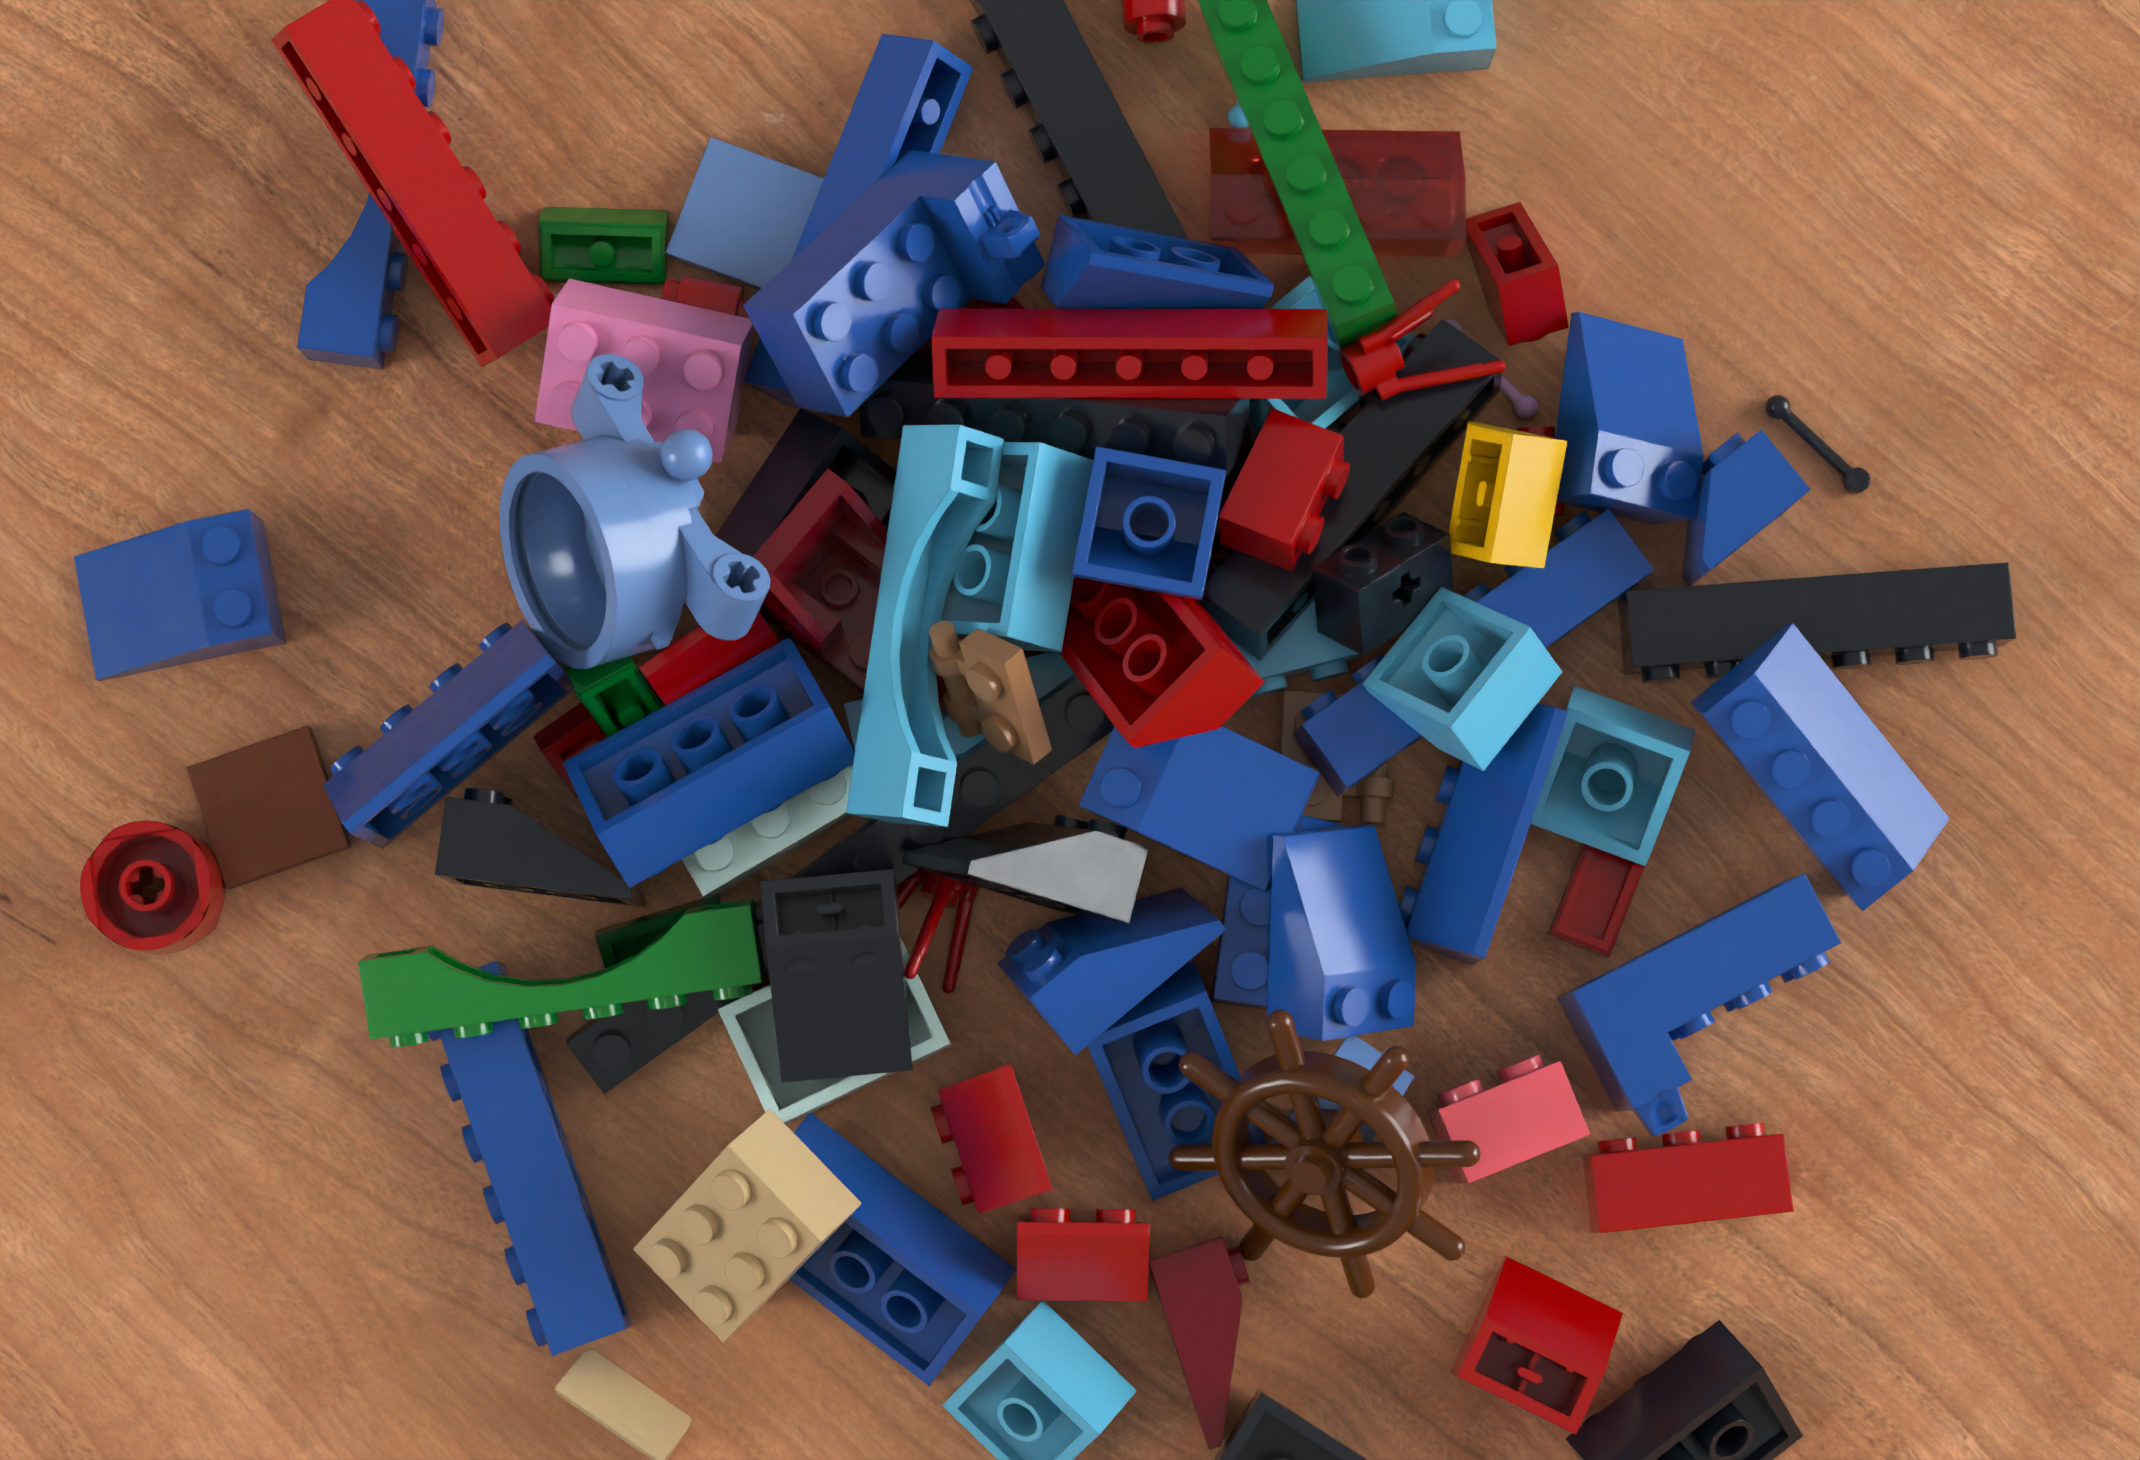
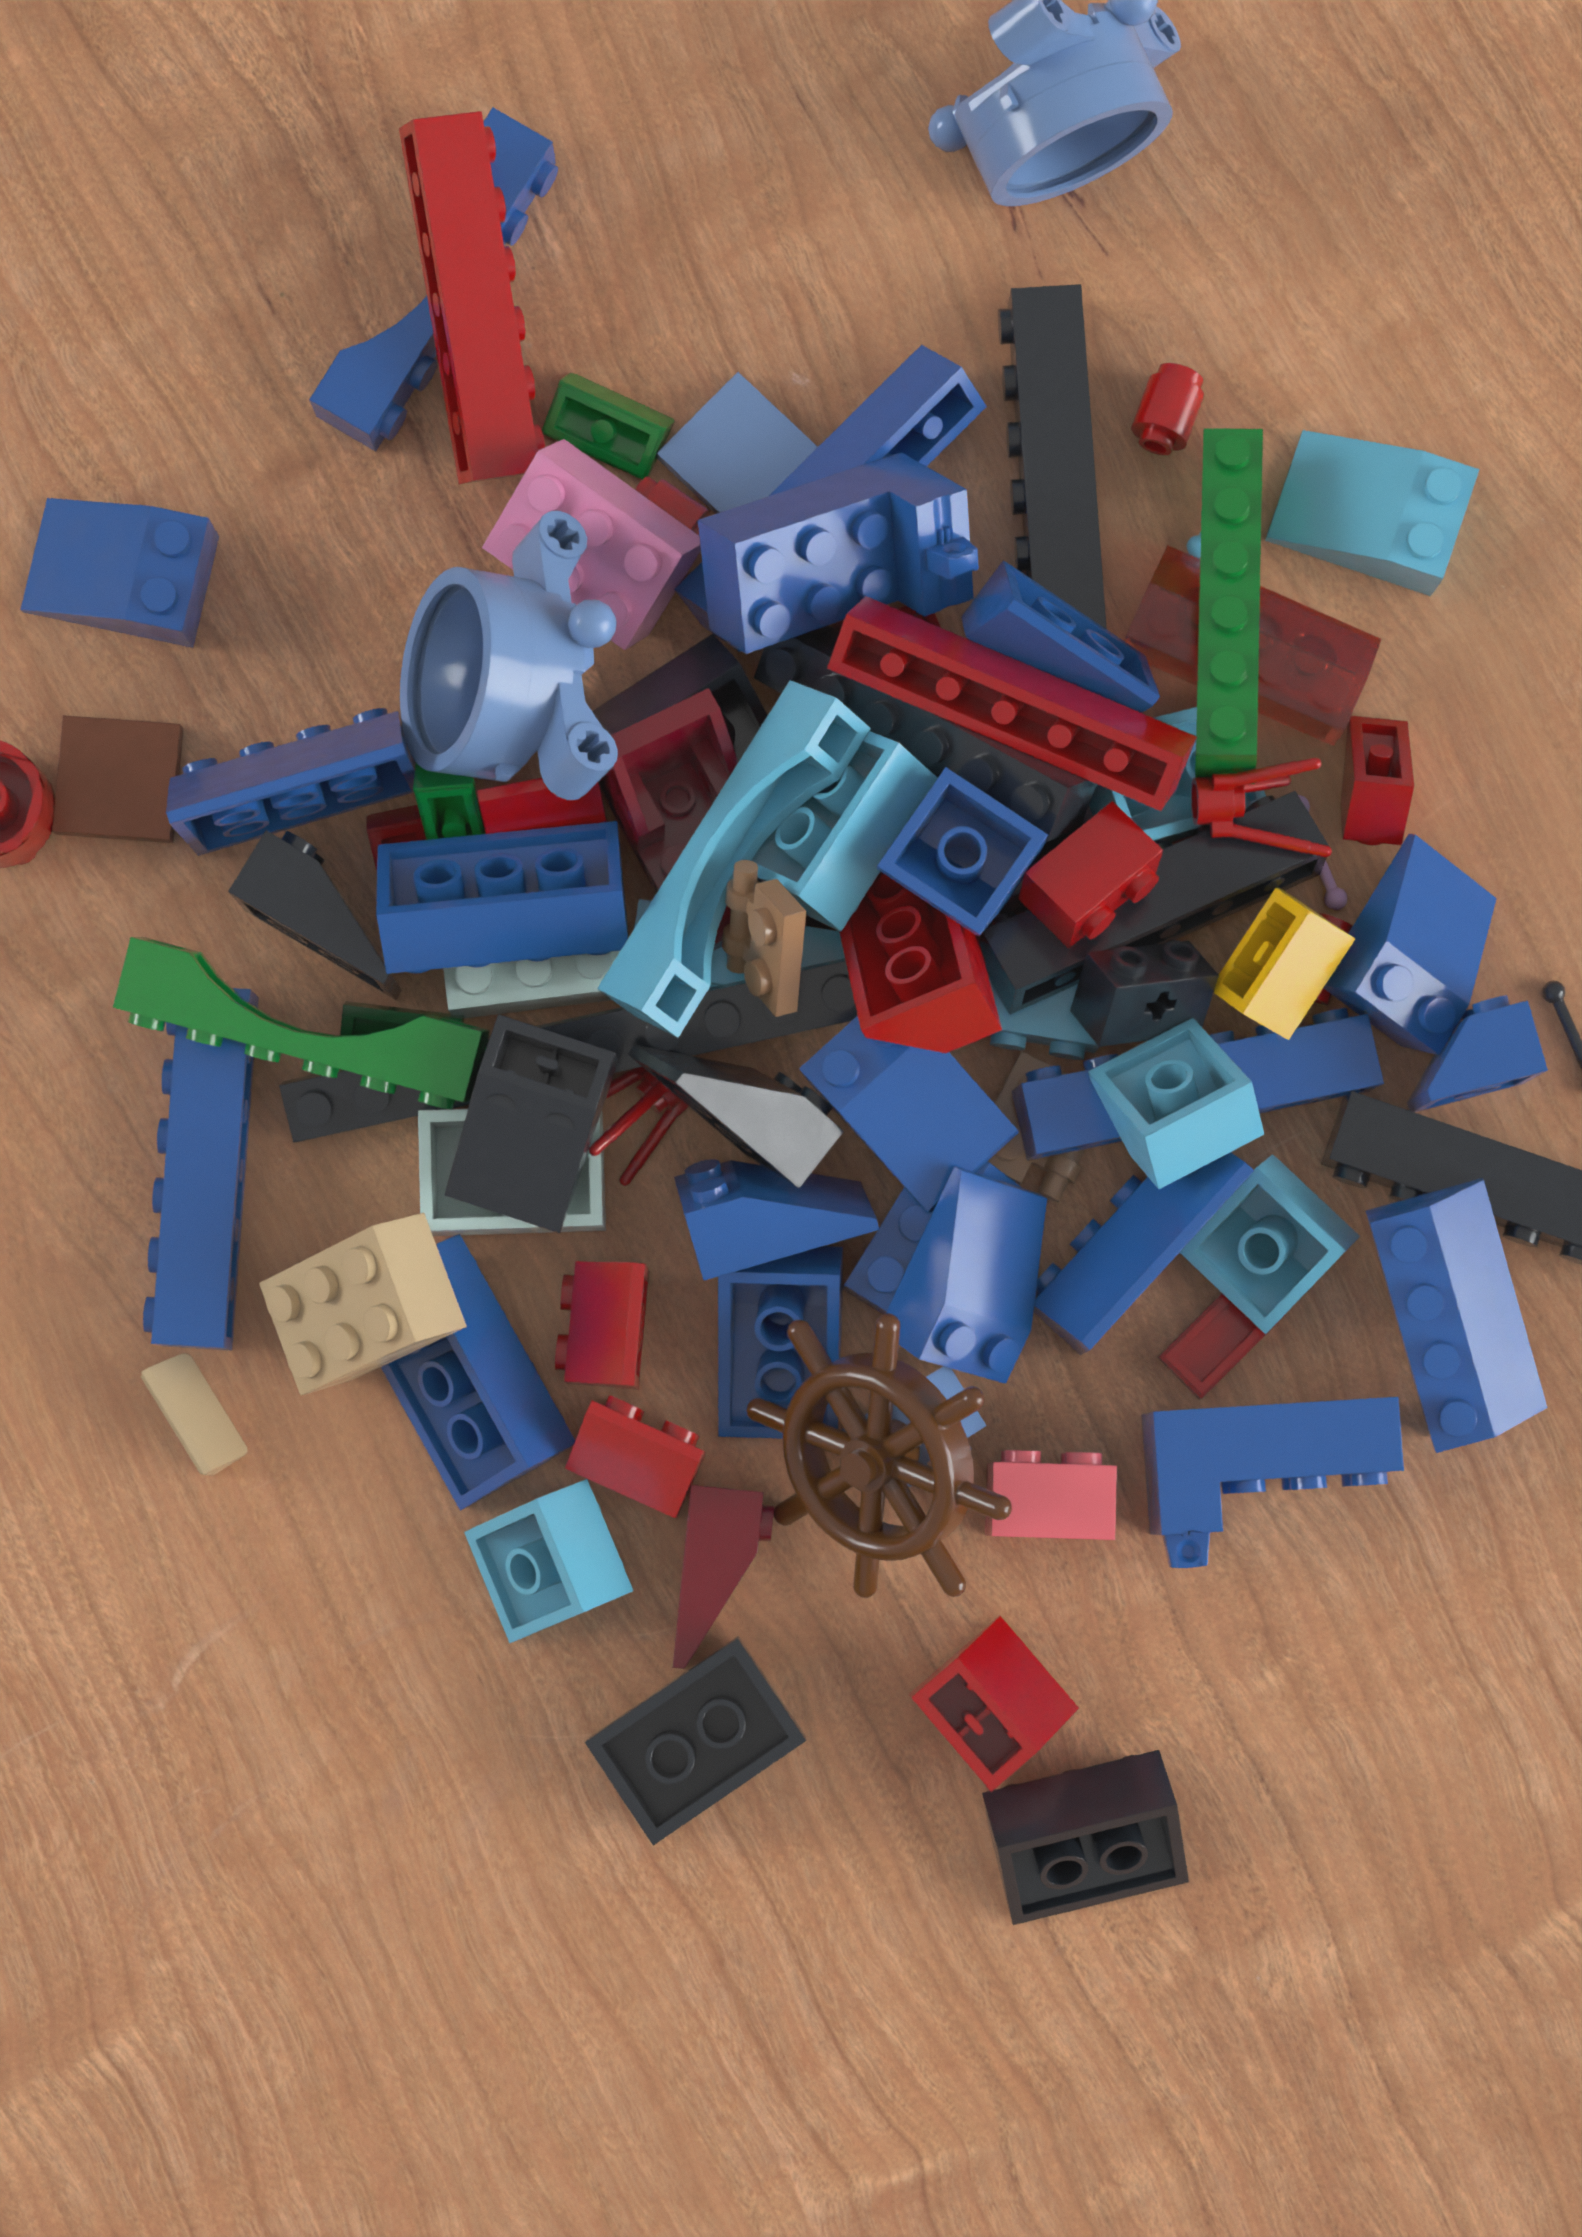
camera: 25 degrees right, 0 degrees up
(1687, 1179) = (1184, 1618): red brick -> none

